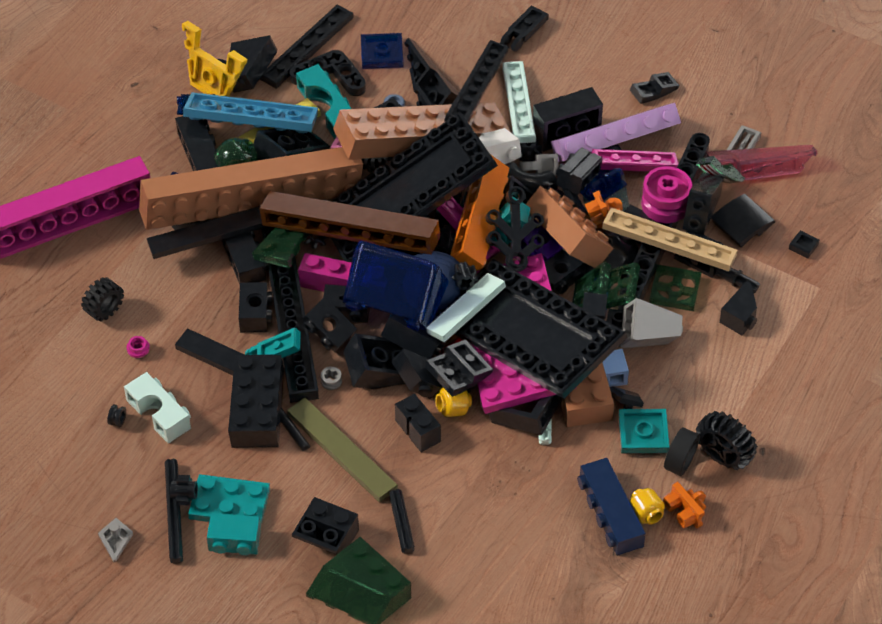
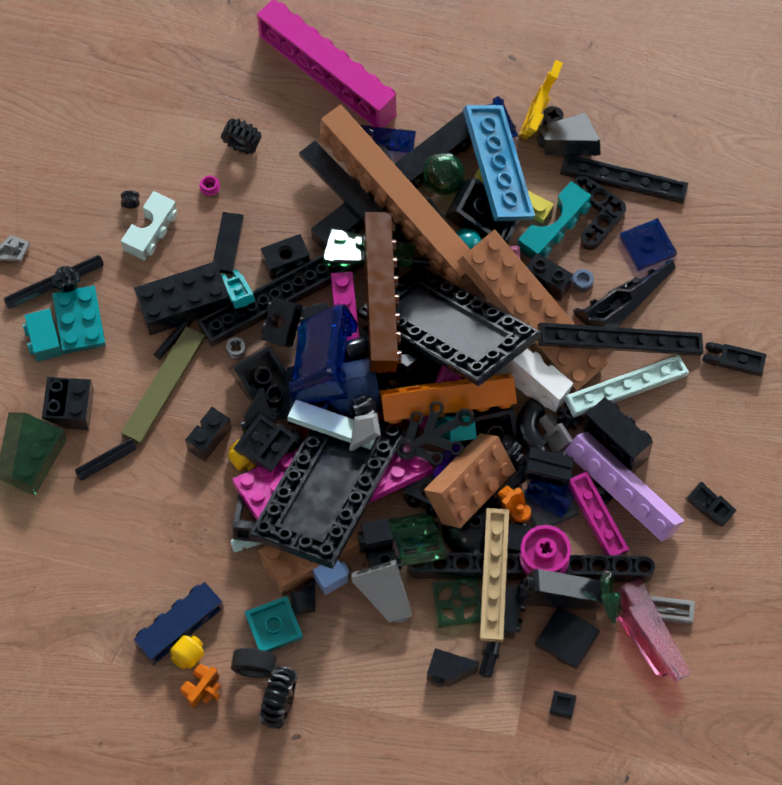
camera: 70 degrees right, 15 degrees up
(489, 277) = (364, 430): none -> light grey piece

